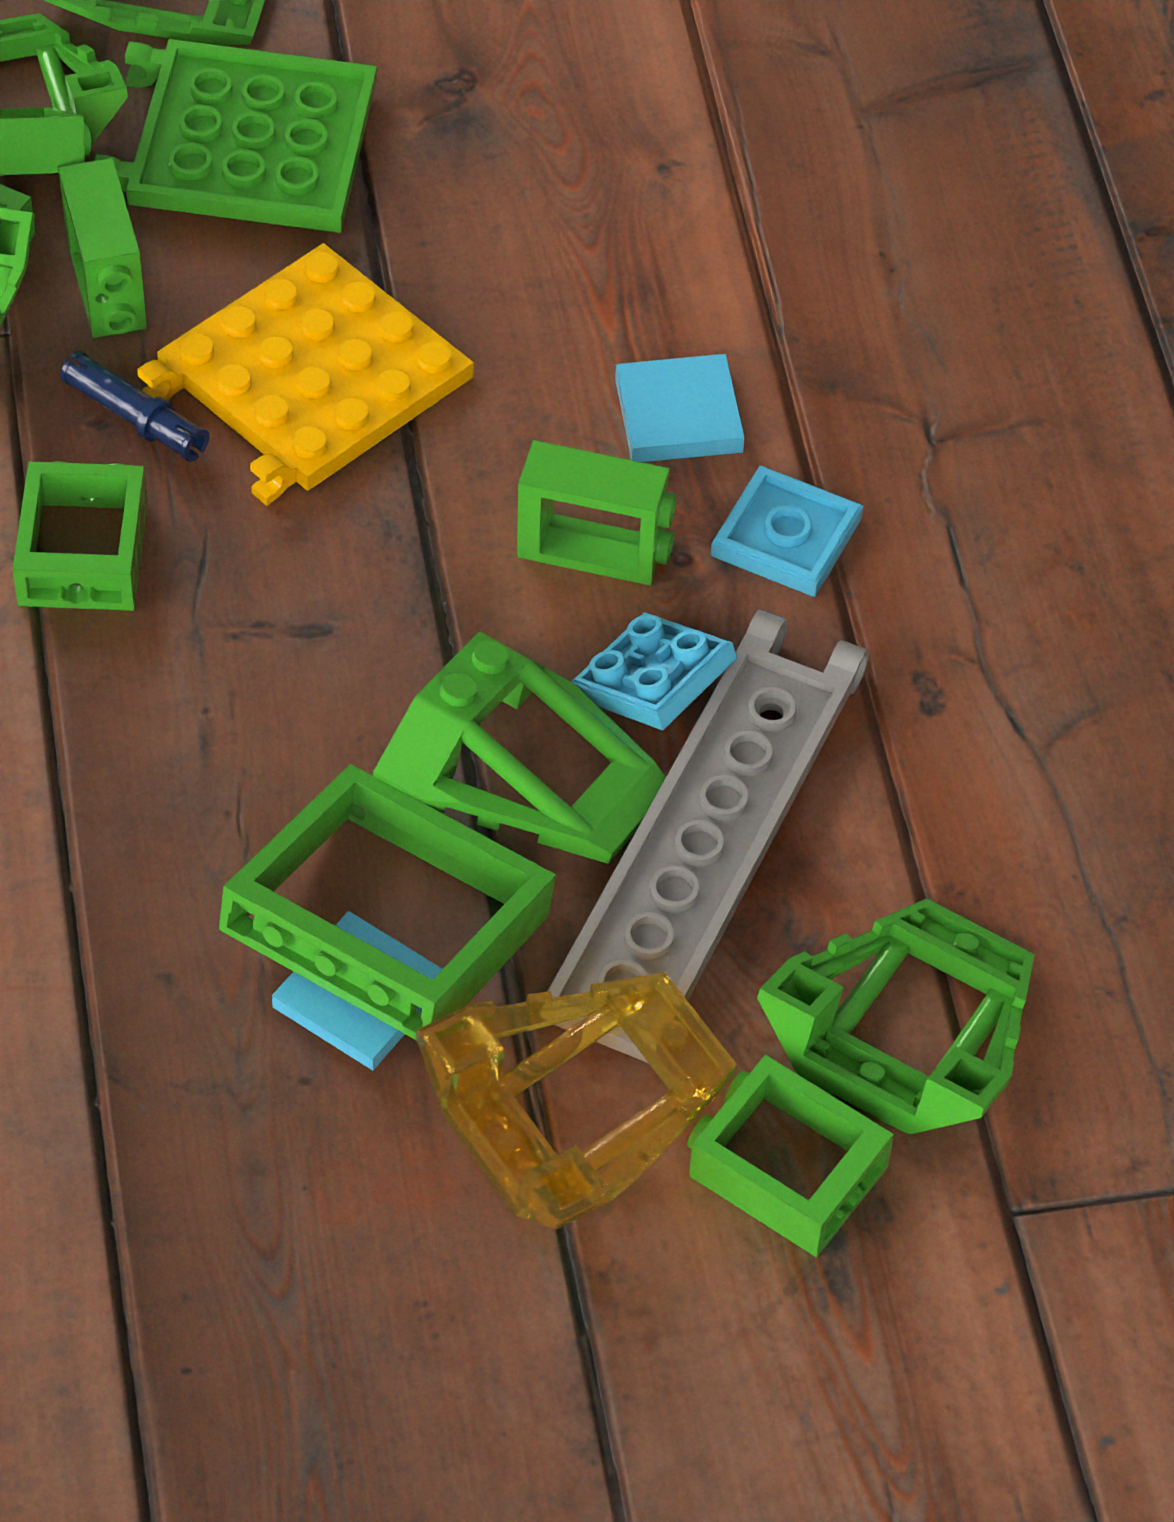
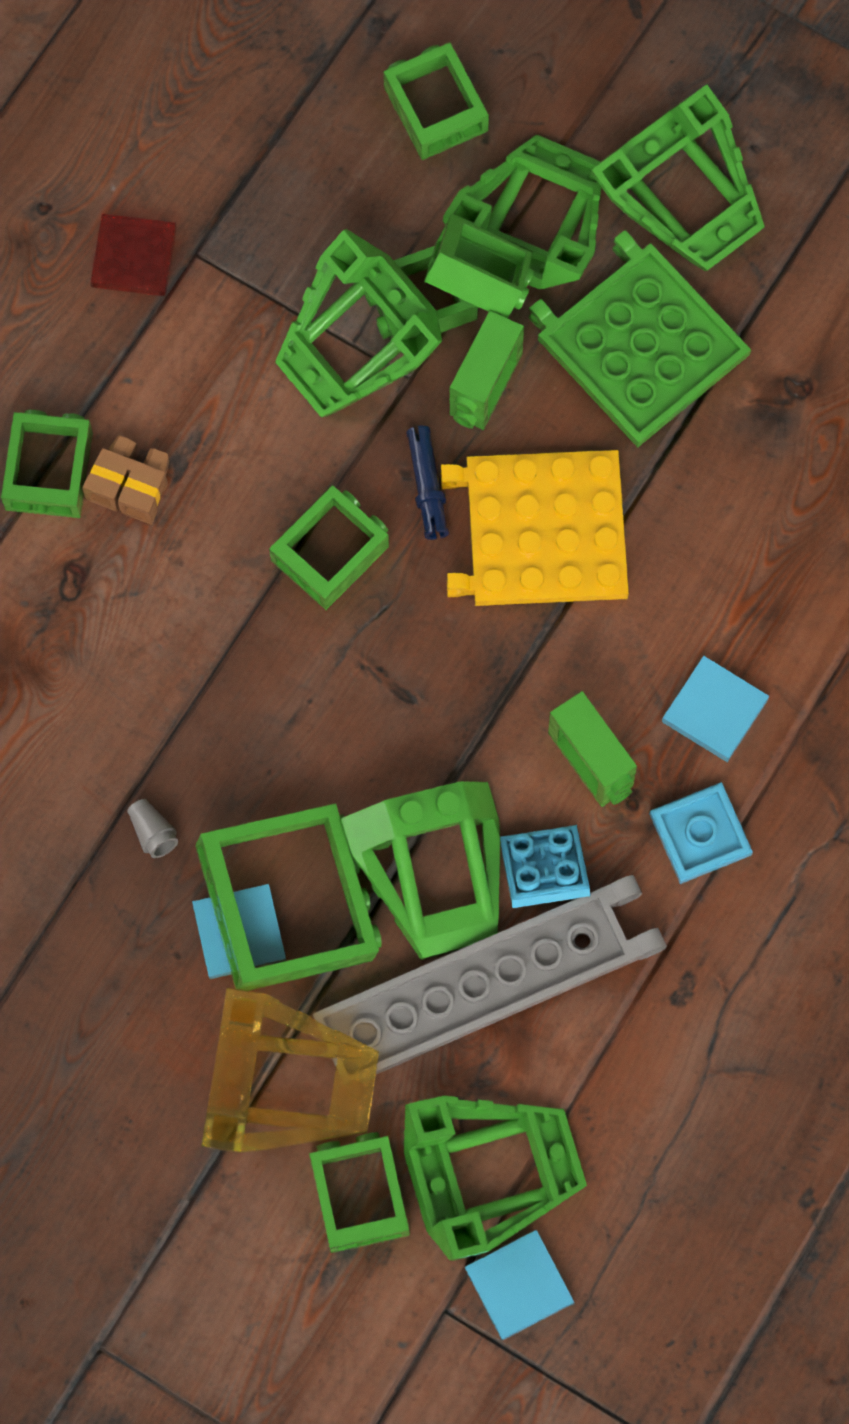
camera: 45 degrees right, 20 degrees up
(146, 960) = (152, 829): none -> light grey cone
(1069, 1114) = (519, 1285): none -> medium azure tile

